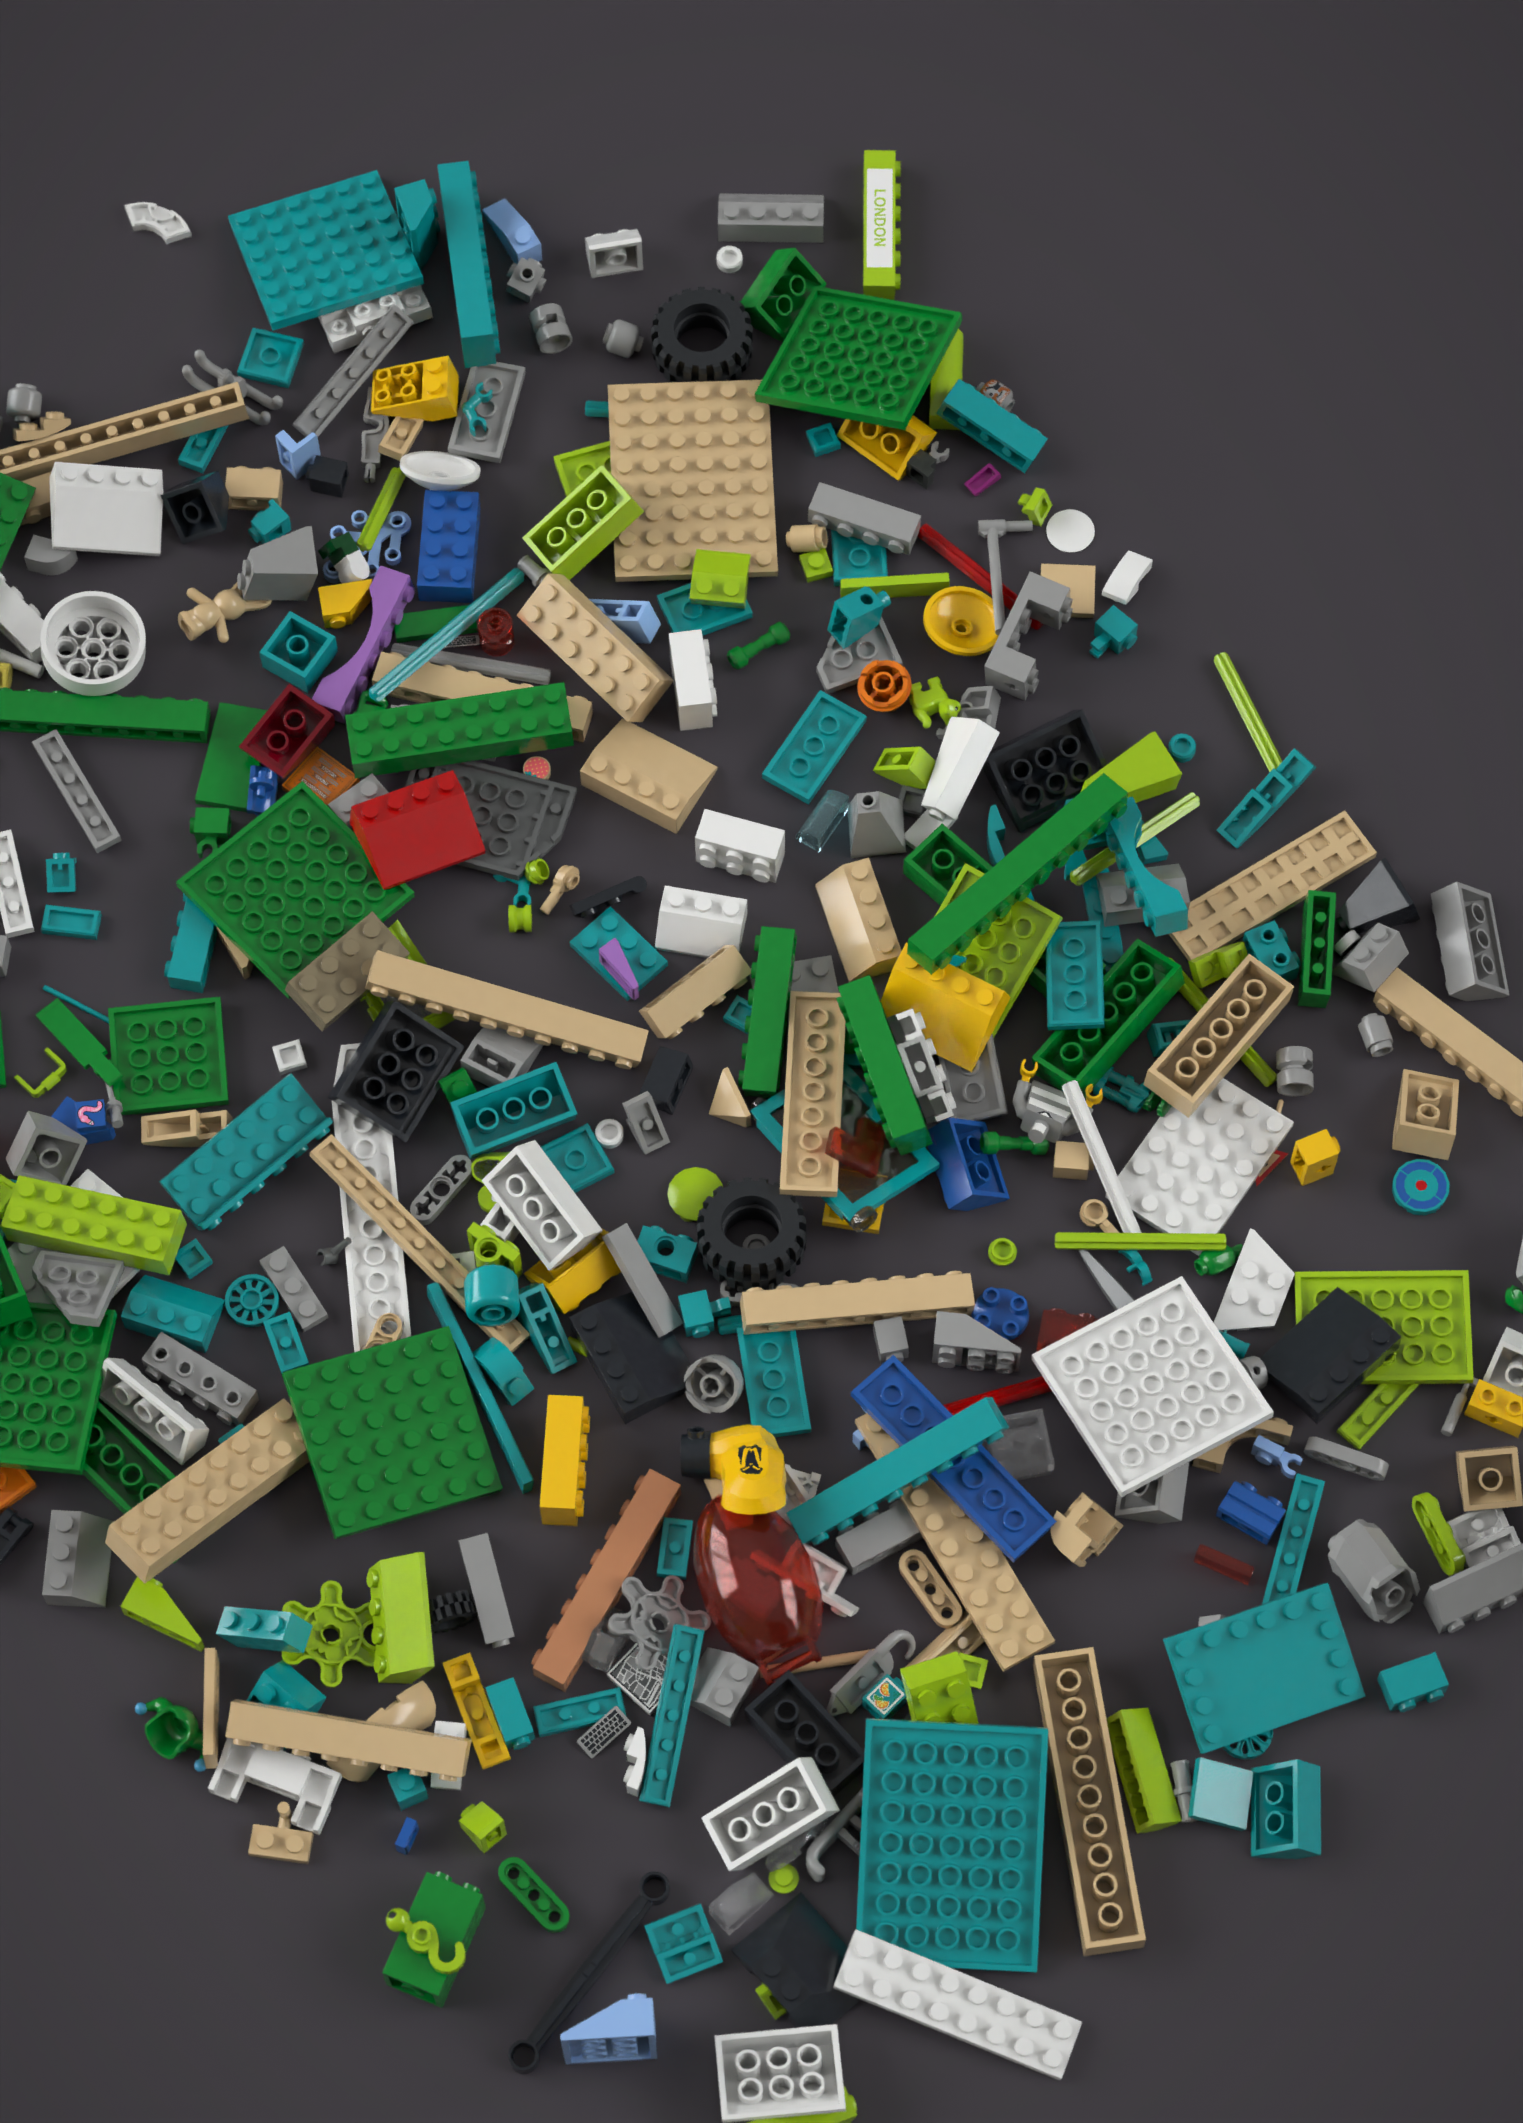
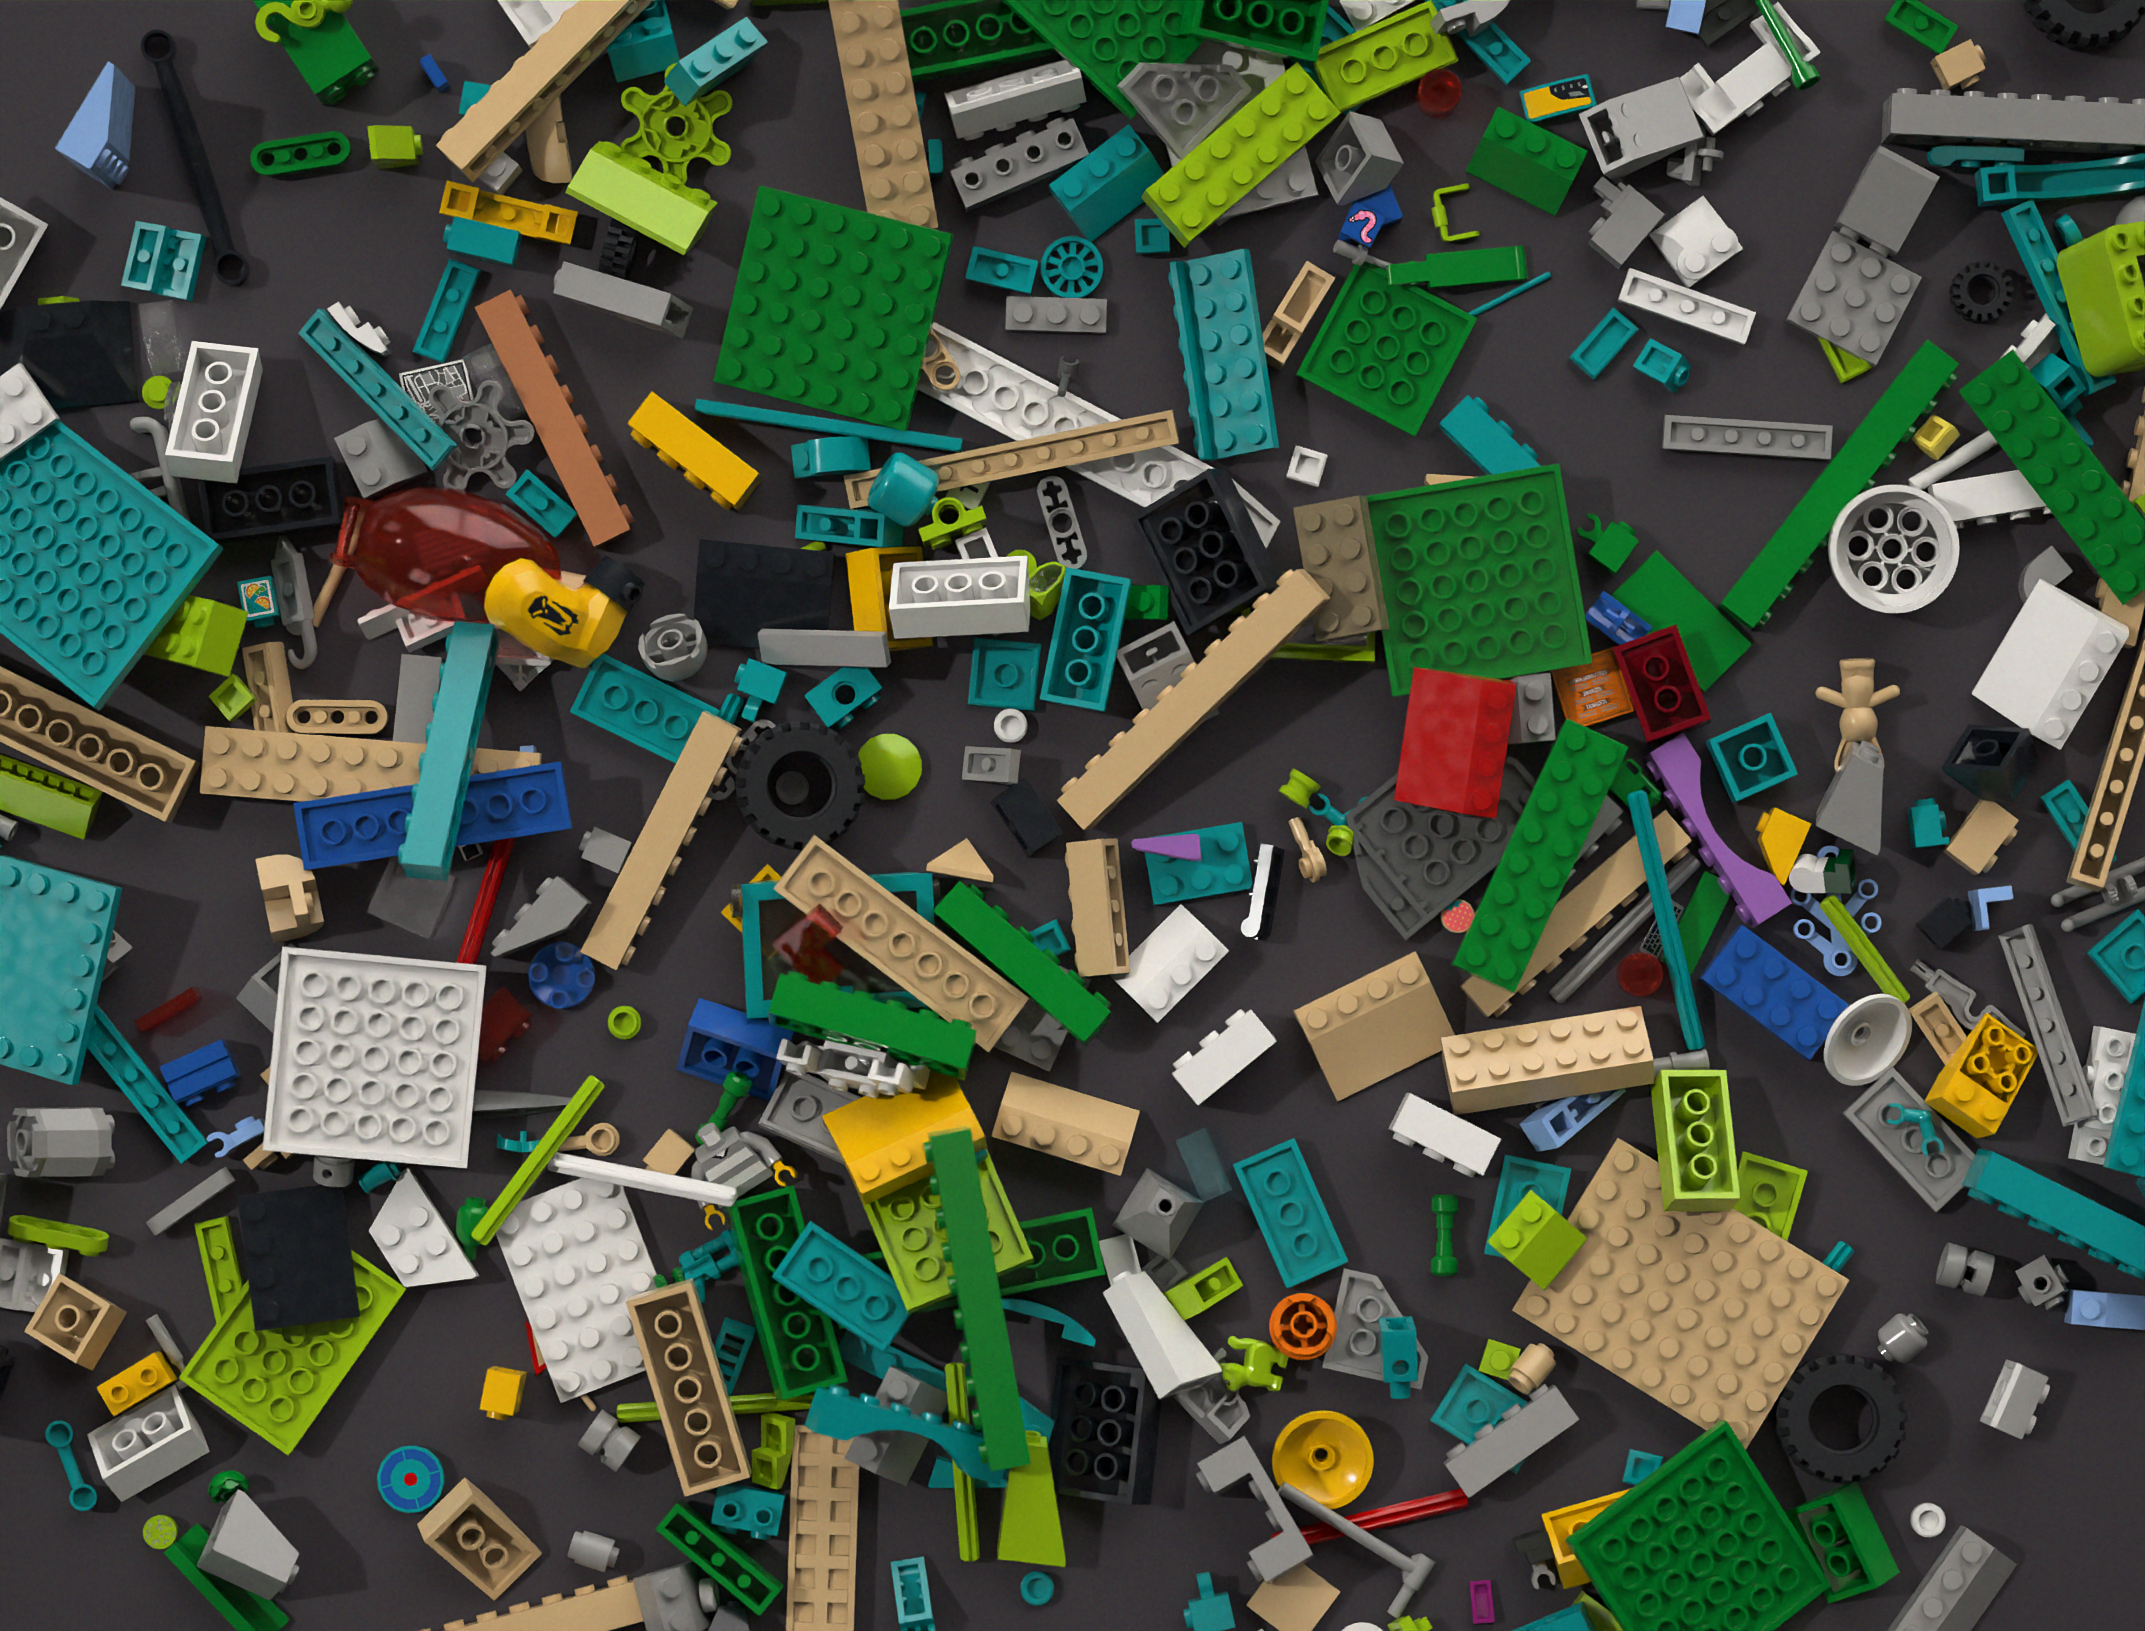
camera: 125 degrees right, 20 degrees up
(603, 1732) = (411, 320): sticker -> none
(898, 585) = (1416, 1421): lime tile -> none

